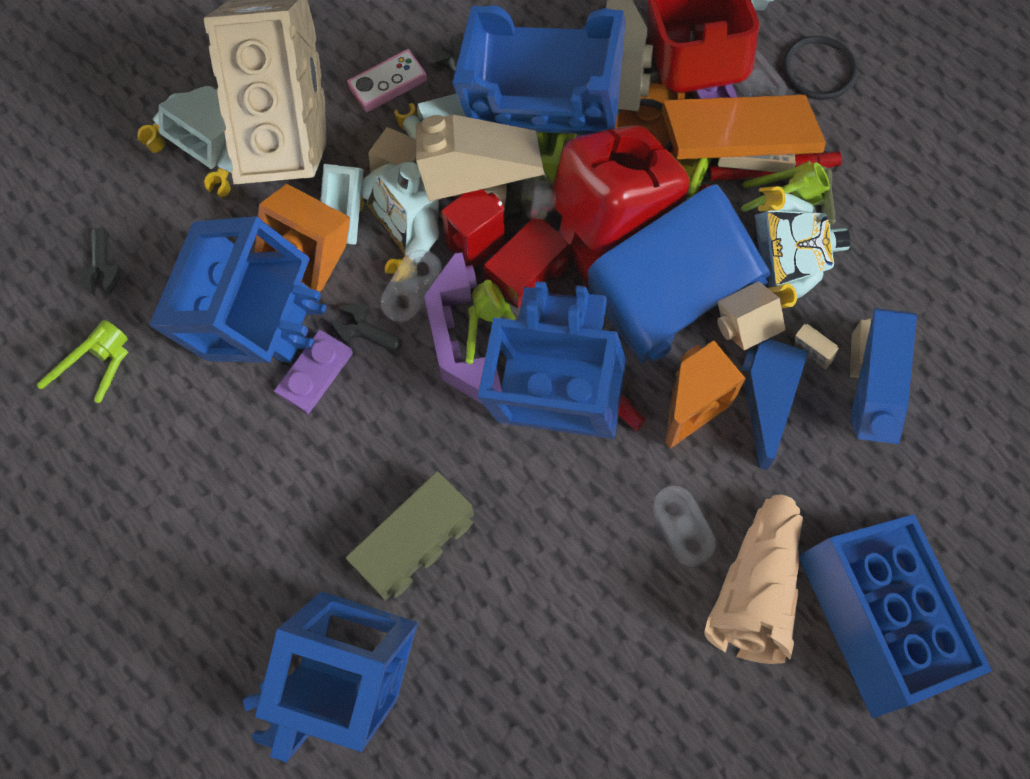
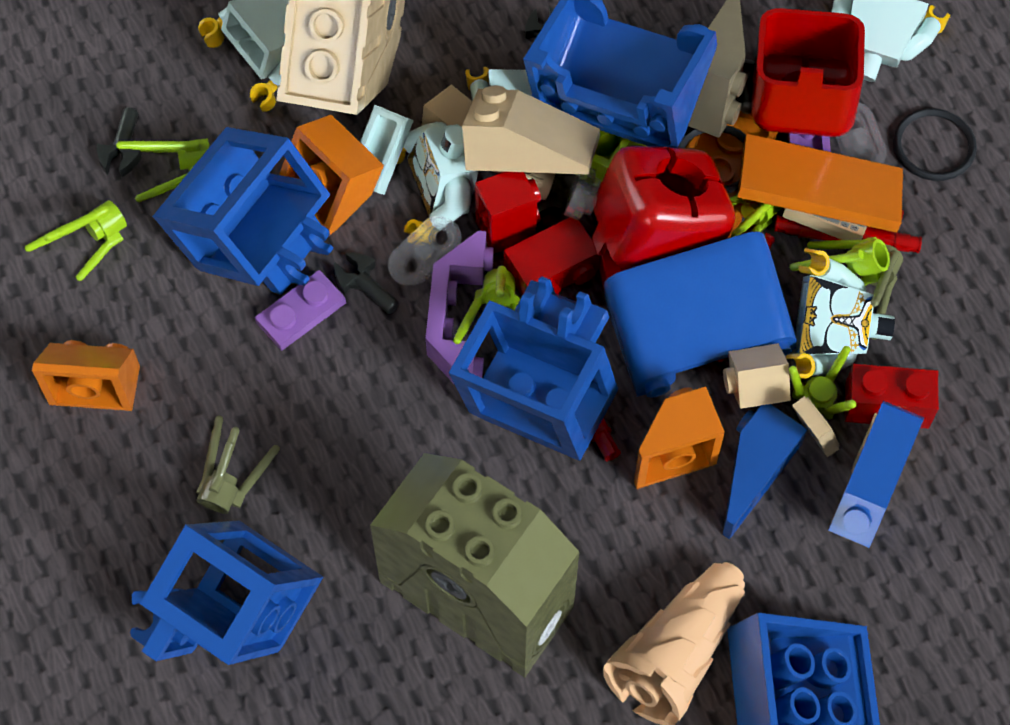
camera: 15 degrees right, 5 degrees down
(133, 492) = (88, 375): none -> orange slope
(165, 256) = (188, 153): none -> lime plant
(289, 562) = (217, 487): none -> olive plant
(387, 80) = (470, 36): tile -> none
(412, 537) = (340, 496): olive brick -> none
(563, 567) = (477, 559): none -> olive piece
(683, 527) = (621, 568): clear plate -> none
(807, 312) = (822, 389): none -> lime plant
(855, 297) = (903, 387): none -> red brick

